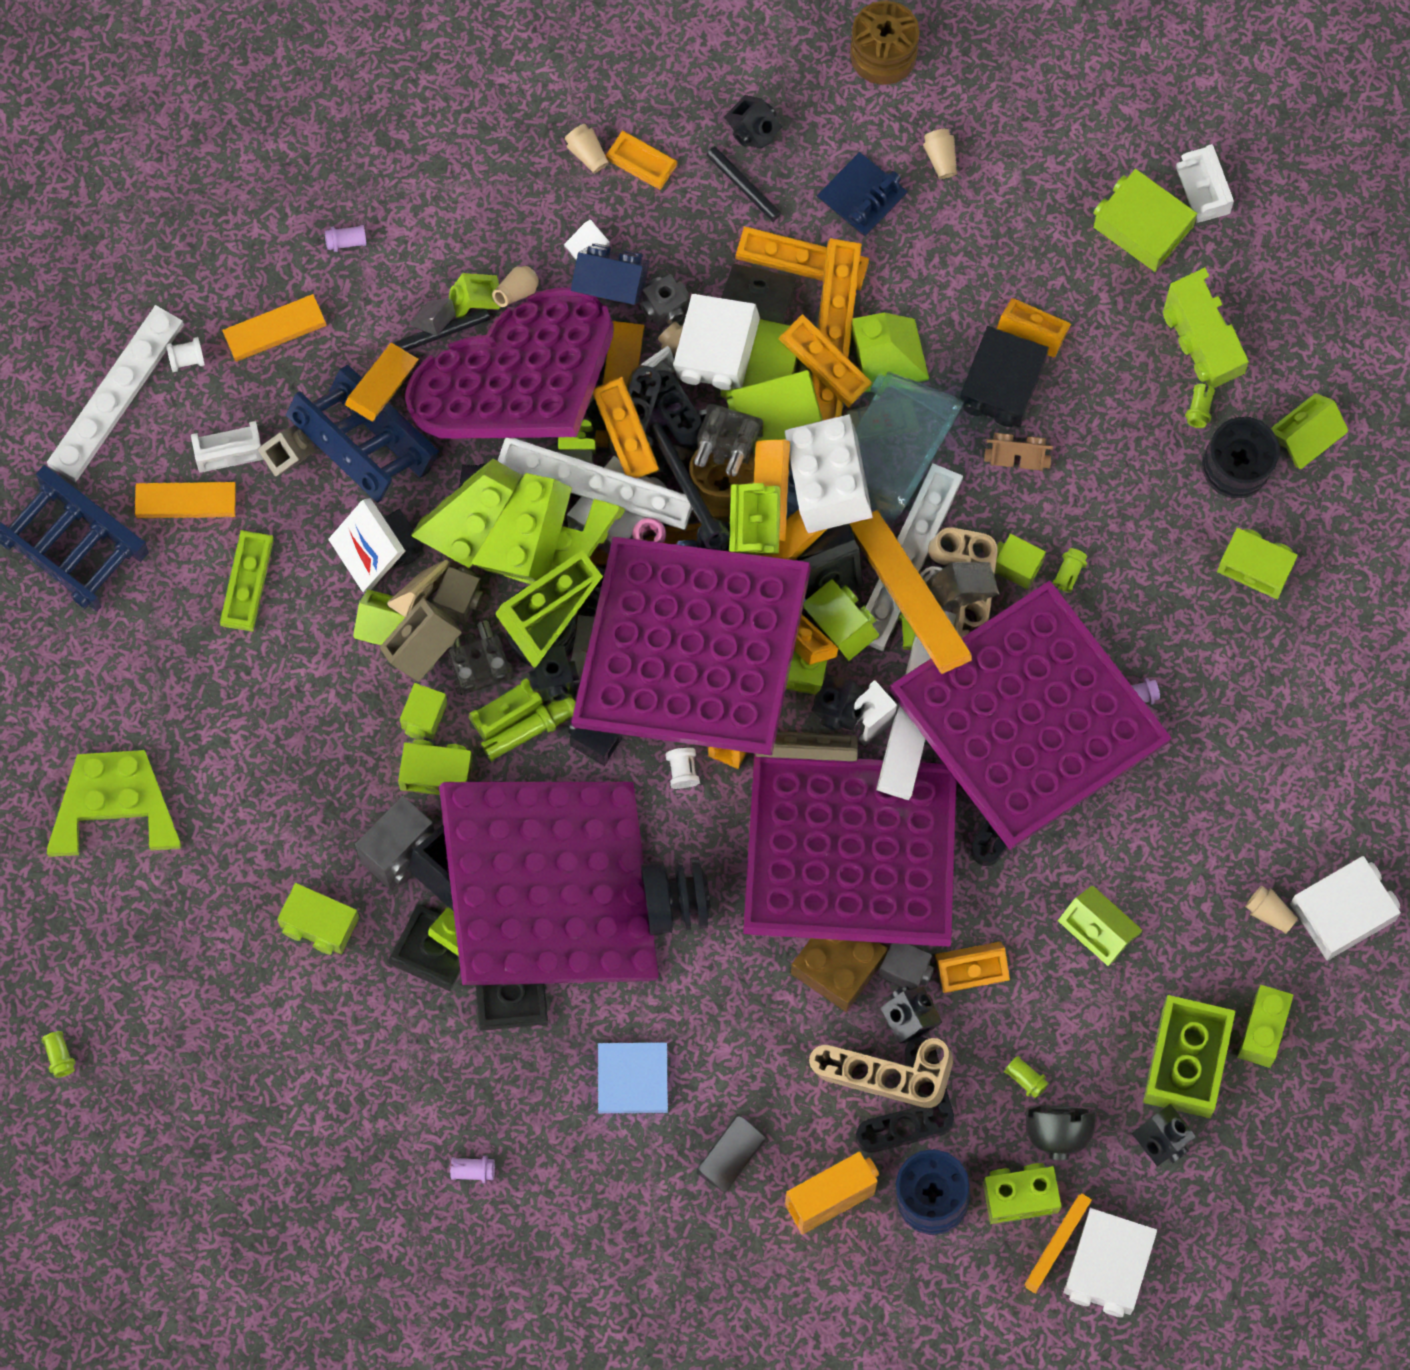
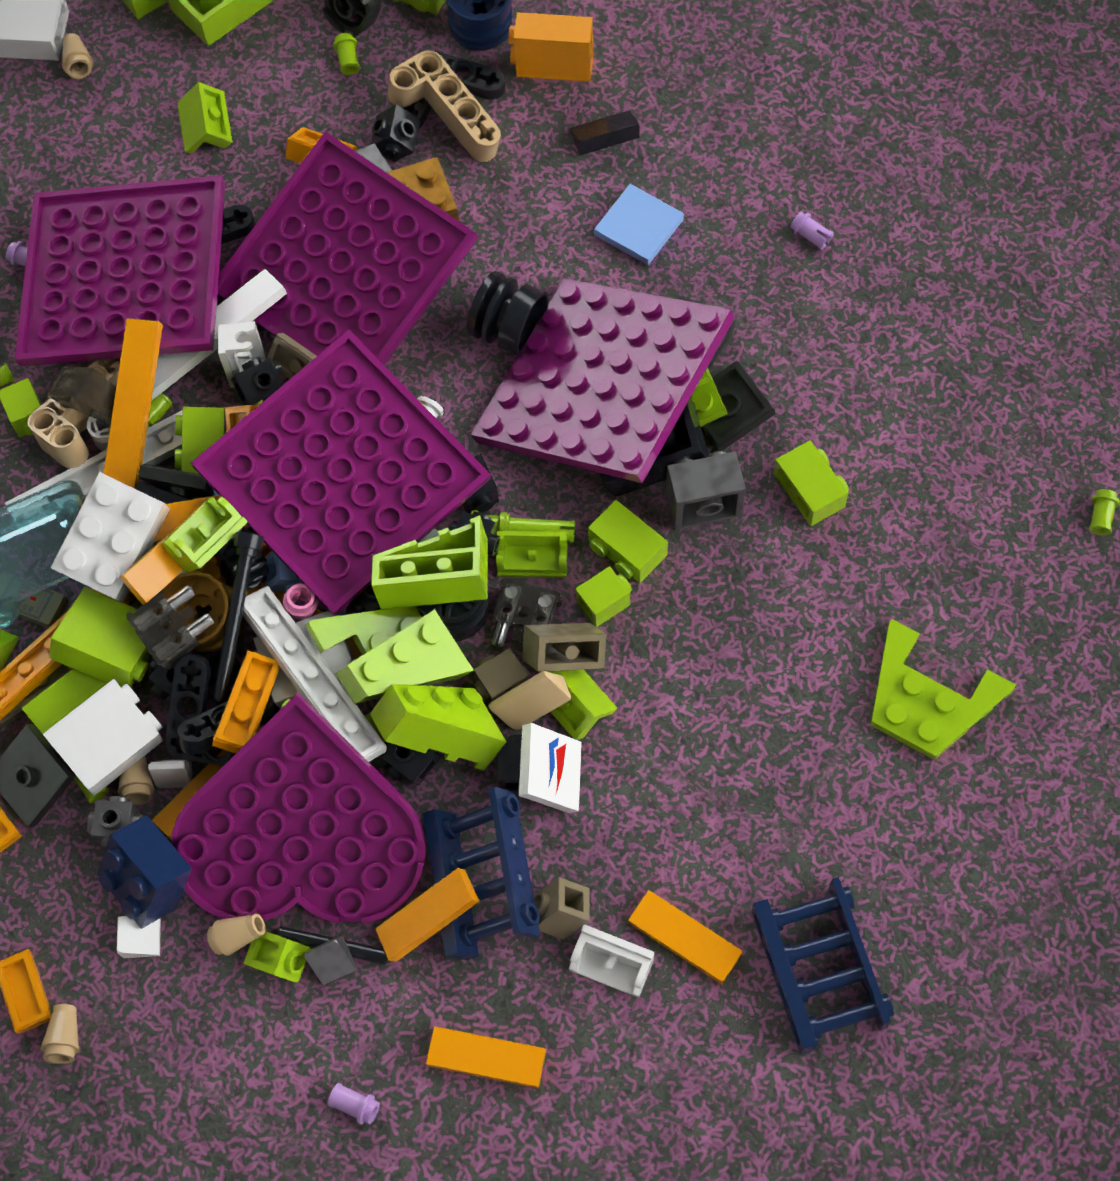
camera: 140 degrees left, 5 degrees down
(115, 393) = (682, 1094): white plate -> none
(185, 354) = (590, 1083): white bush -> none
(246, 580) = (678, 821): lime tile -> none
(825, 360) = (27, 668): light orange tile -> none

